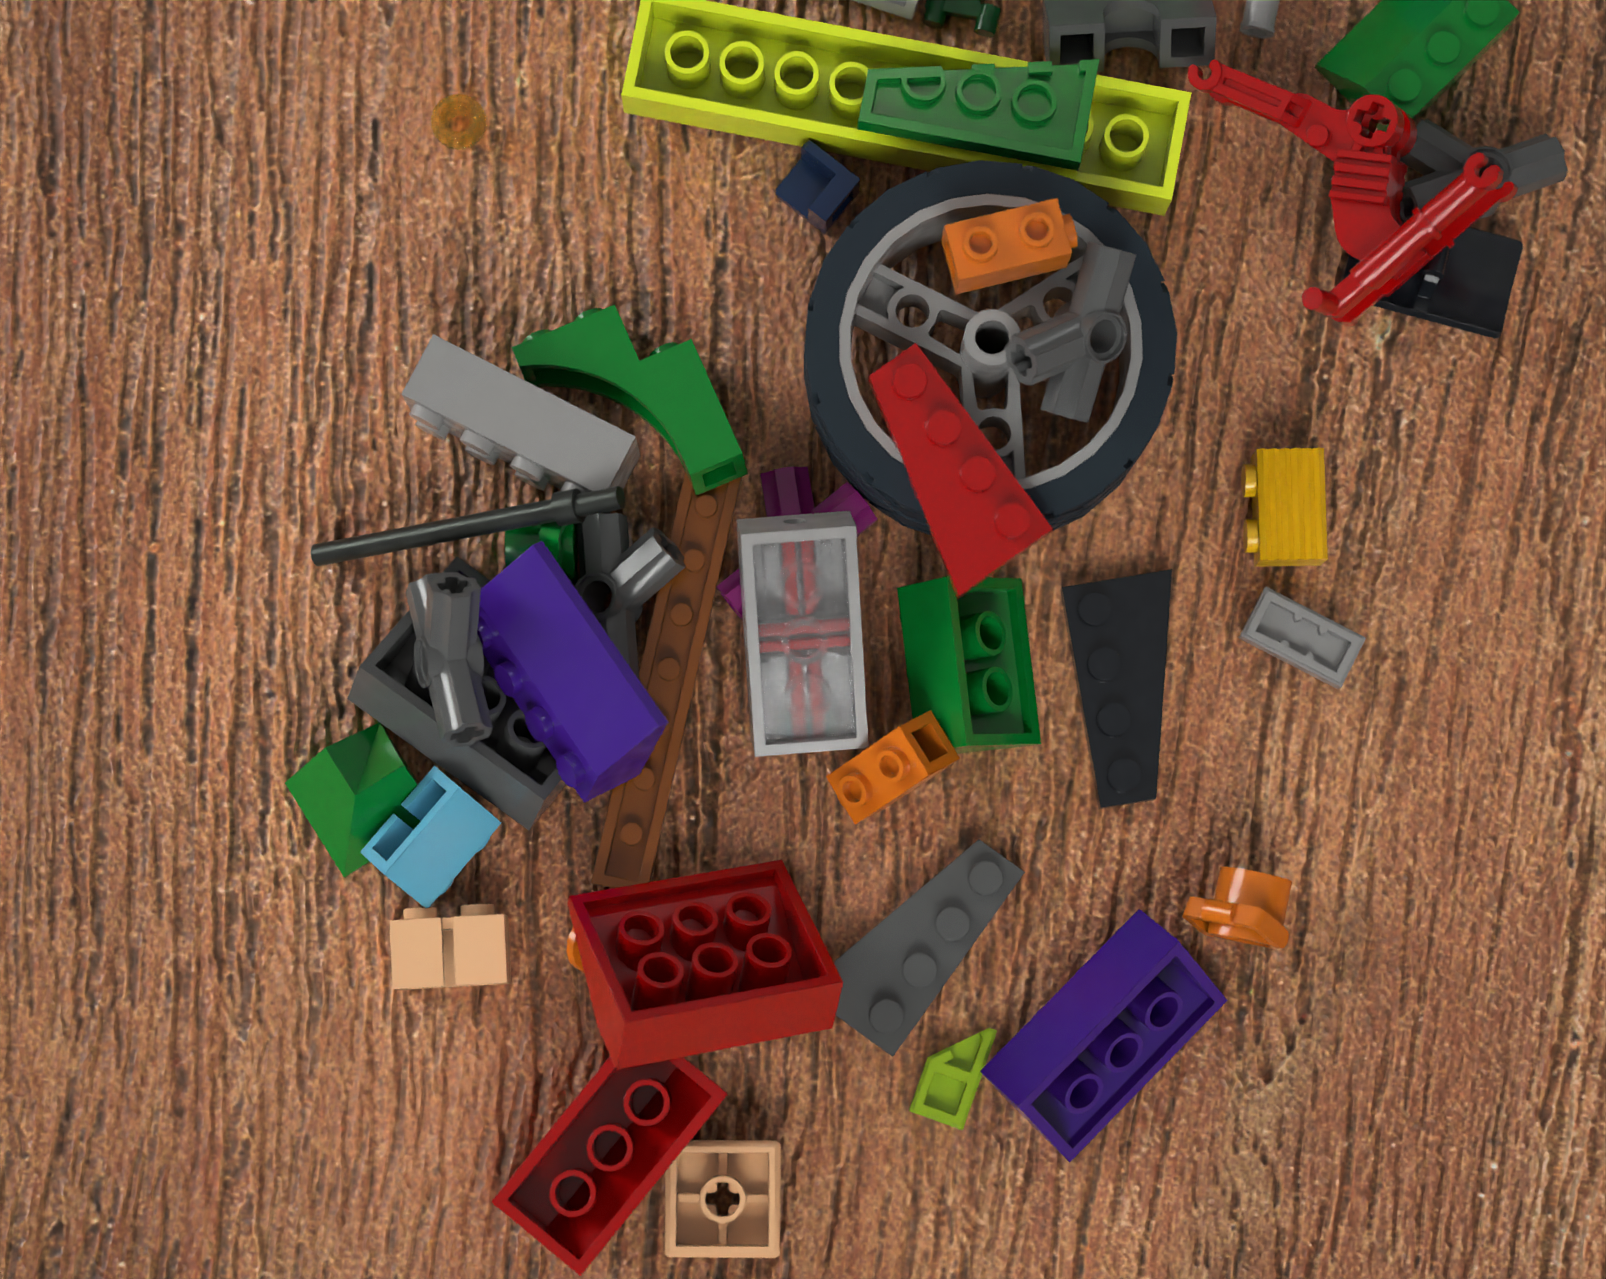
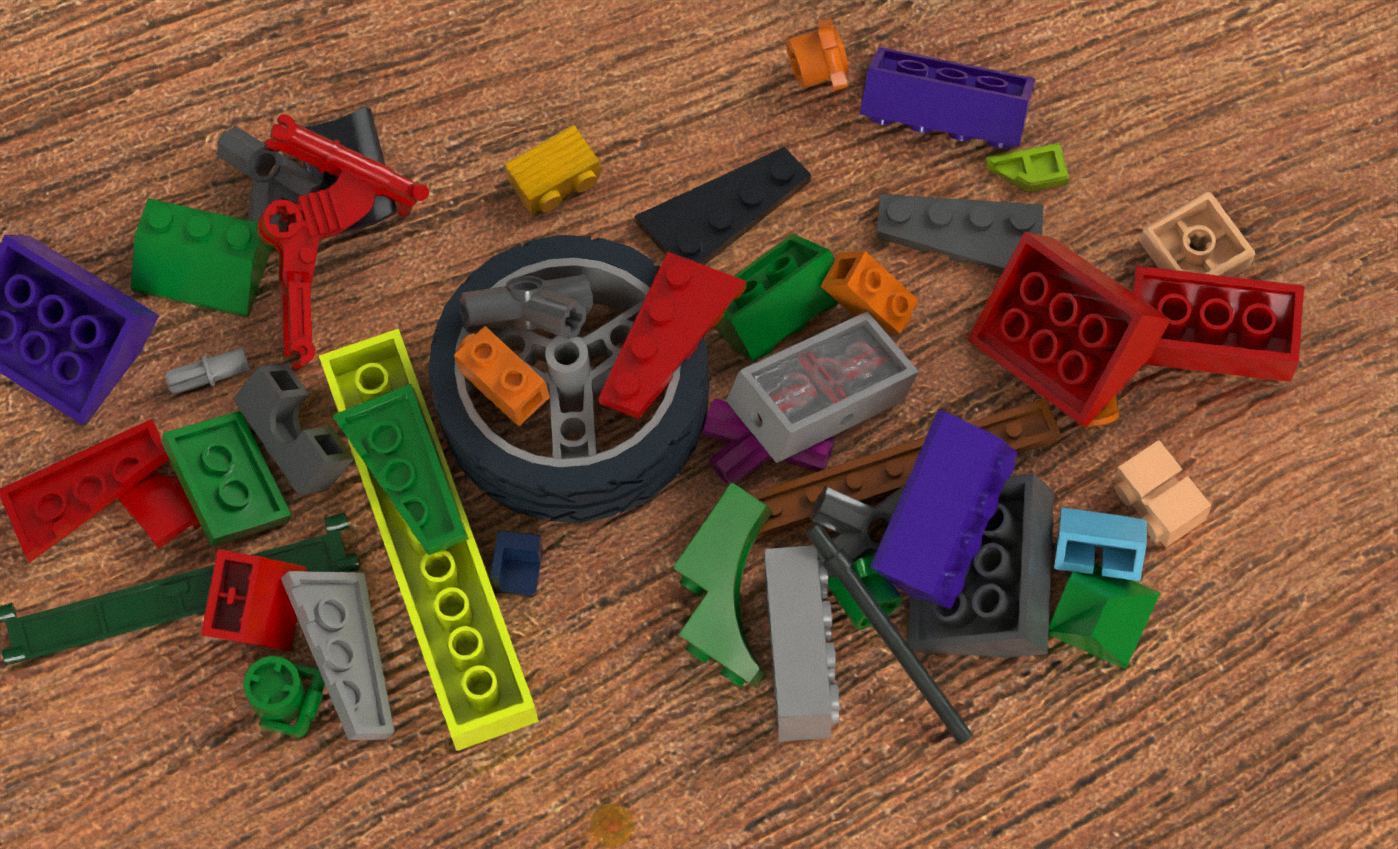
camera: 115 degrees left, 15 degrees down
(450, 654) = (978, 587): dark grey piece -> none
(1302, 638) = (629, 121): light grey plate -> none

